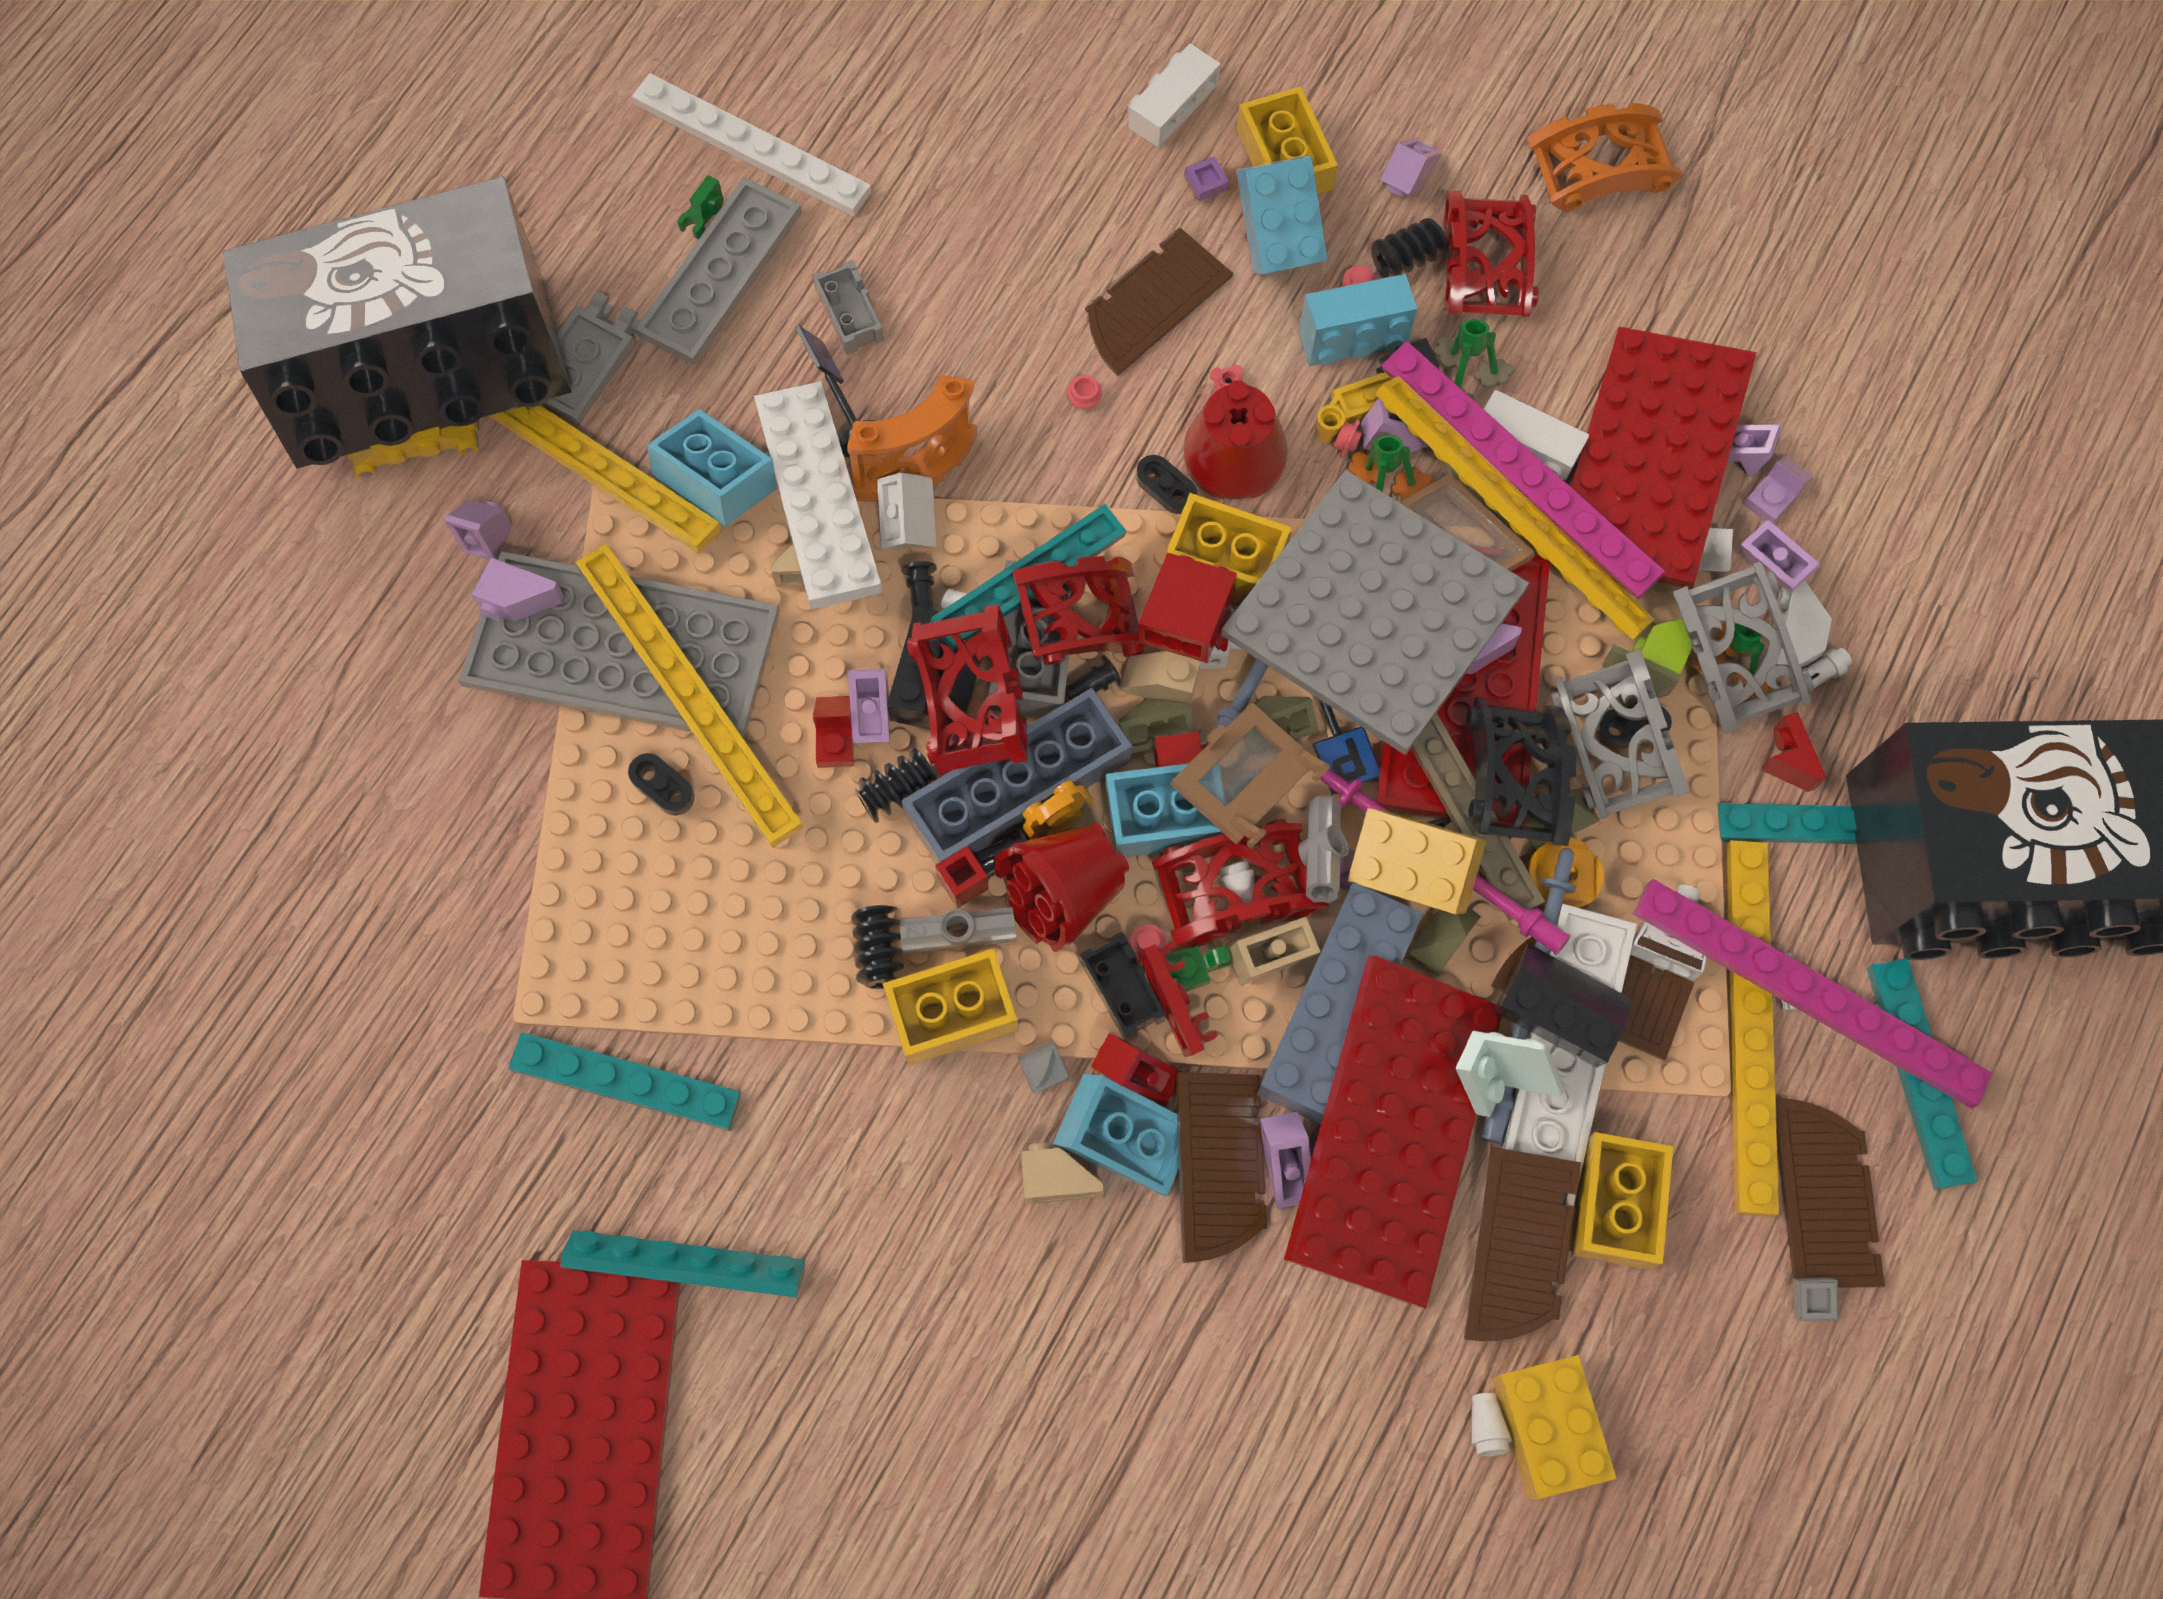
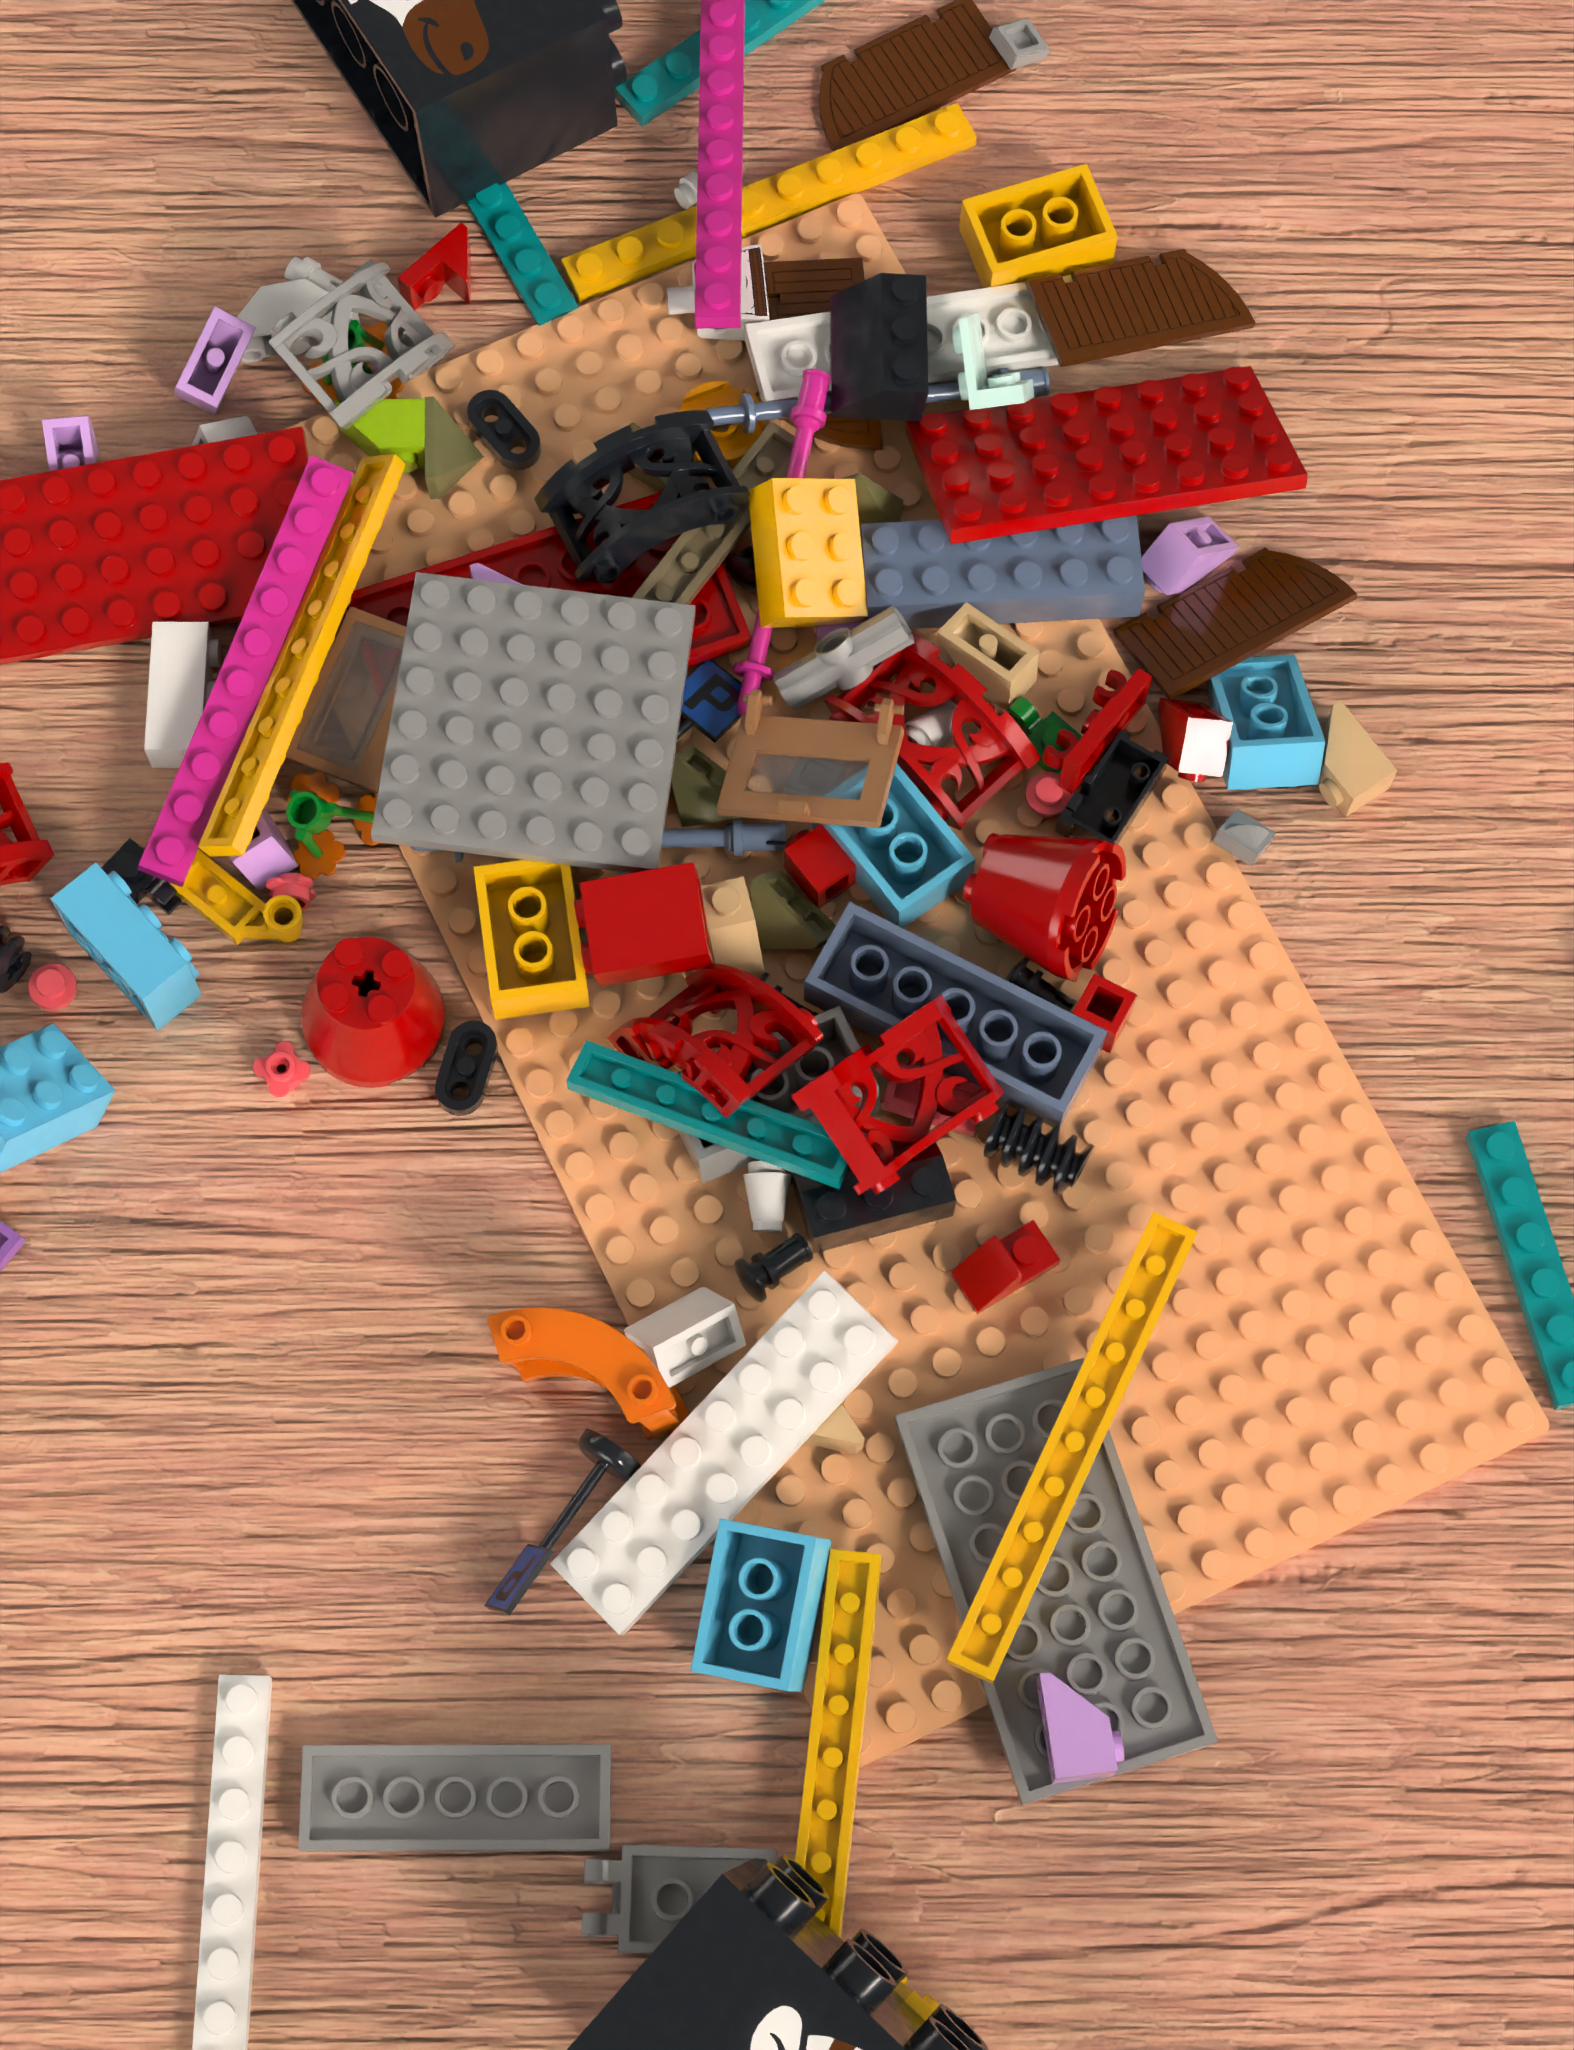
camera: 120 degrees left, 0 degrees up
(480, 528) = (1000, 1859): lavender slope -> none
(662, 786) = (1192, 1421): black plate -> none
(704, 204) = (362, 1878): green plate -> none
(848, 307) = (421, 1594): light grey piece -> none
(869, 705) = (960, 1230): lavender slope -> none
(874, 945) = (1233, 1058): black piece -> none
(932, 933) = (1176, 1016): light grey piece -> none
(951, 1006) = (1251, 945): yellow brick -> none
(1058, 811) = (971, 943): light orange plate -> none
(1084, 392) = (388, 1232): coral plate -> none
(1153, 299) = (202, 1225): reddish brown piece -> none
(1470, 342) = (97, 790): plant -> none
(1488, 1426) = (1326, 263): white cone -> none
(1554, 1428) = (1292, 206): yellow brick -> none
(1629, 681) = (560, 364): light grey fence -> none
(1778, 489) = (112, 414): lavender slope -> none

